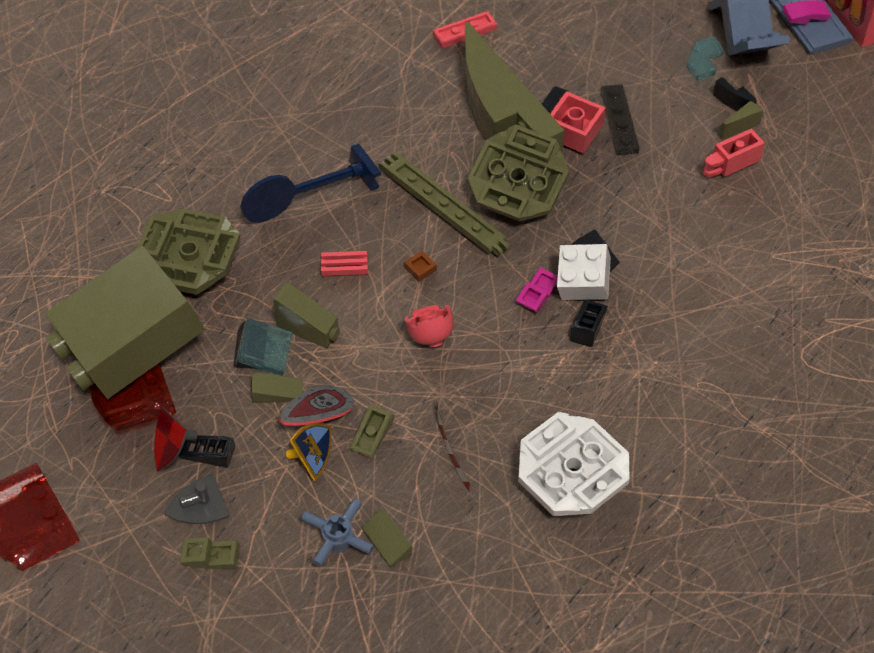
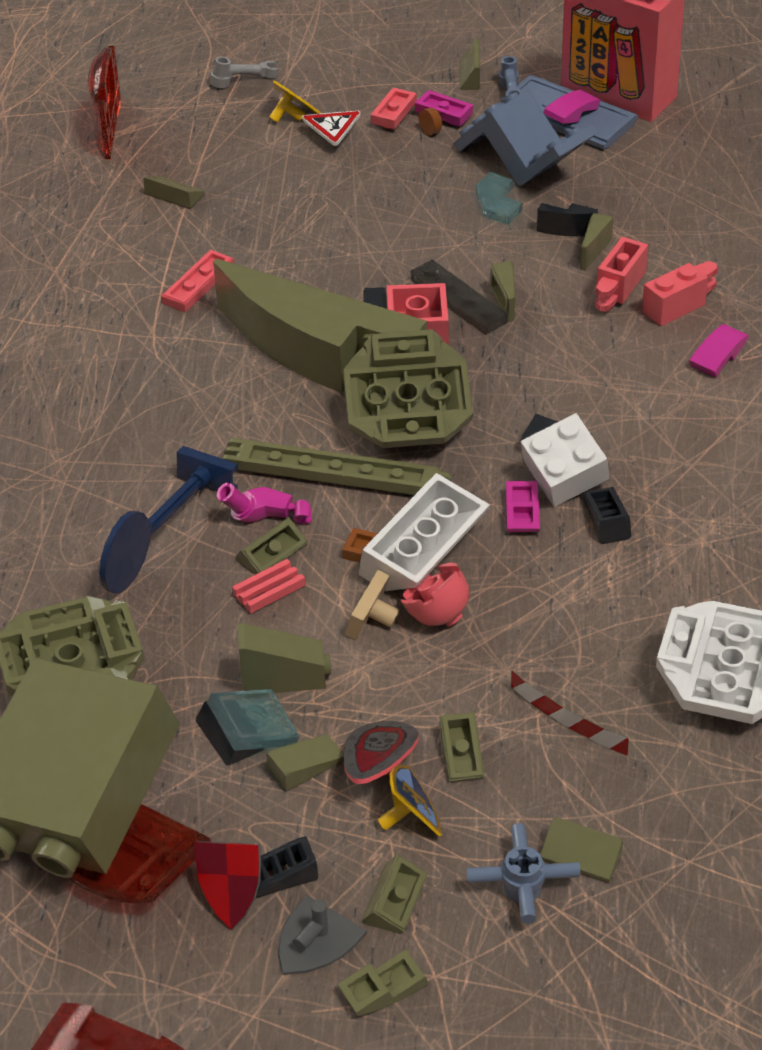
camera: 30 degrees left, 10 degrees down
(260, 503) = (394, 895): none -> olive slope
(366, 238) = (272, 547): none -> olive slope
(379, 205) = (262, 503): none -> dark pink arm
(389, 309) = (372, 607): none -> tan tile
(453, 276) = (421, 533): none -> white slope
(654, 124) = (503, 286): none -> olive slope
(764, 239) = (717, 349): none -> dark pink slope
(766, 186) = (678, 292): none -> coral hinge

